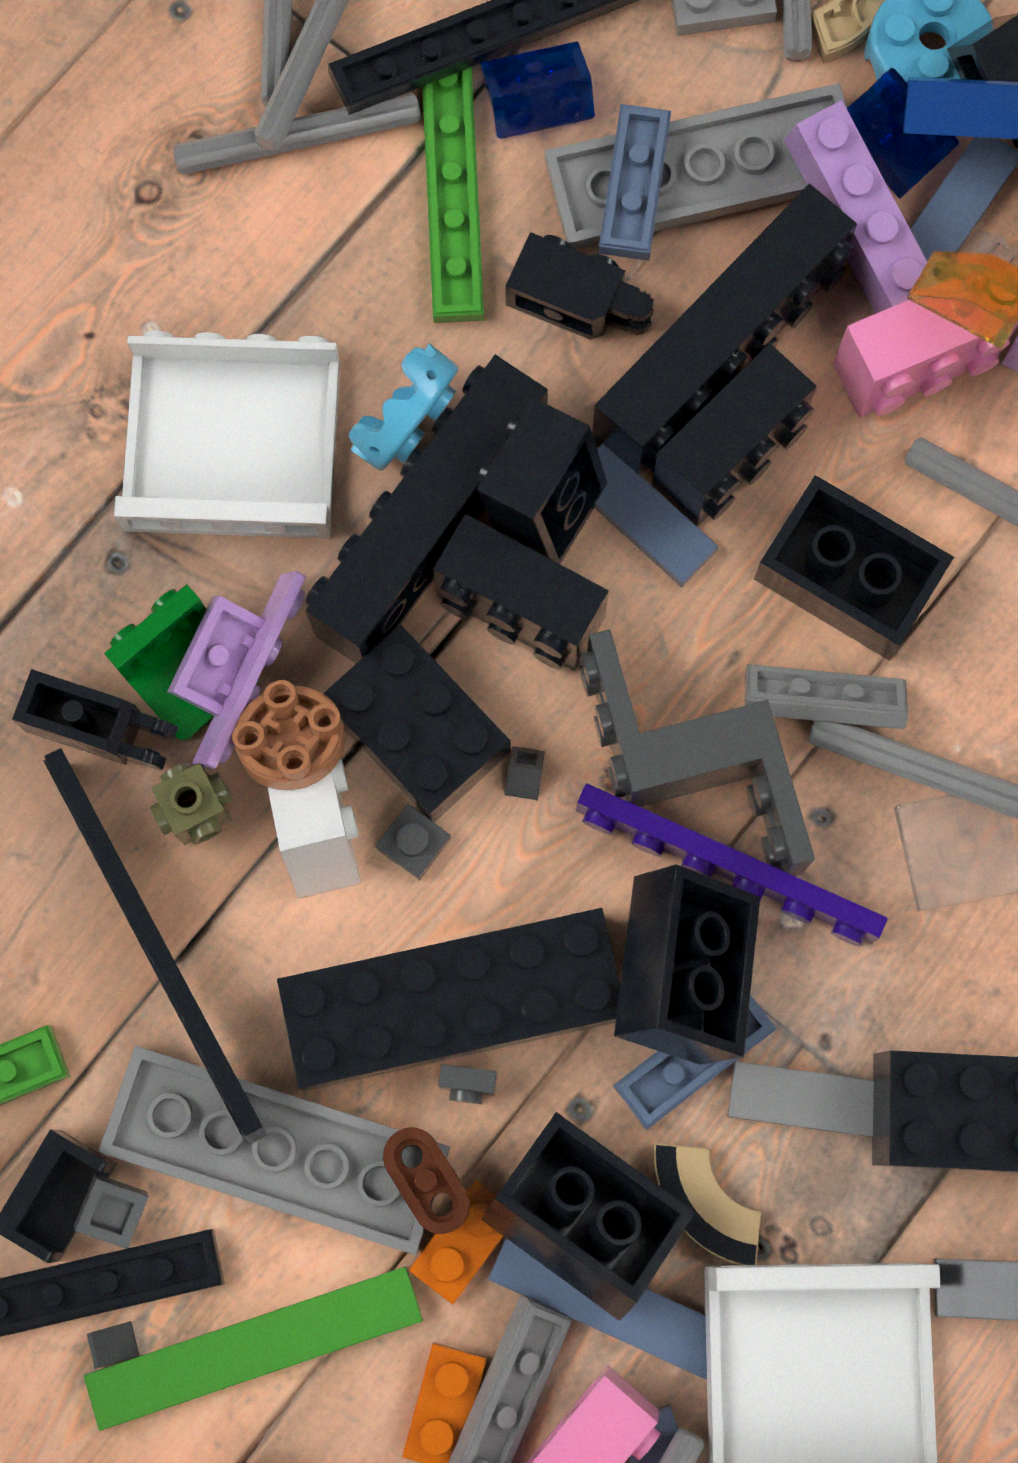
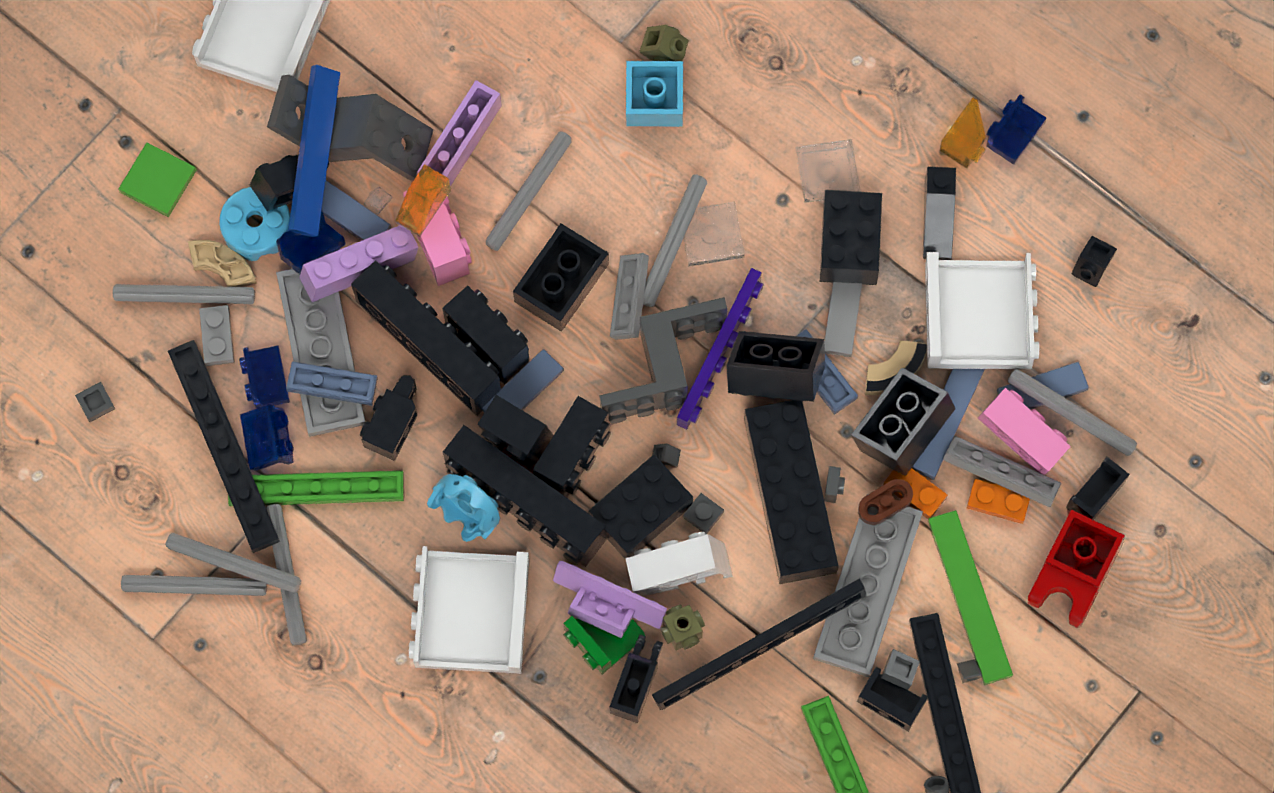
camera: 90 degrees left, 5 degrees down
(289, 736) = (650, 567): nougat tile -> none
(650, 74) = (265, 376): none -> clear blue bracket

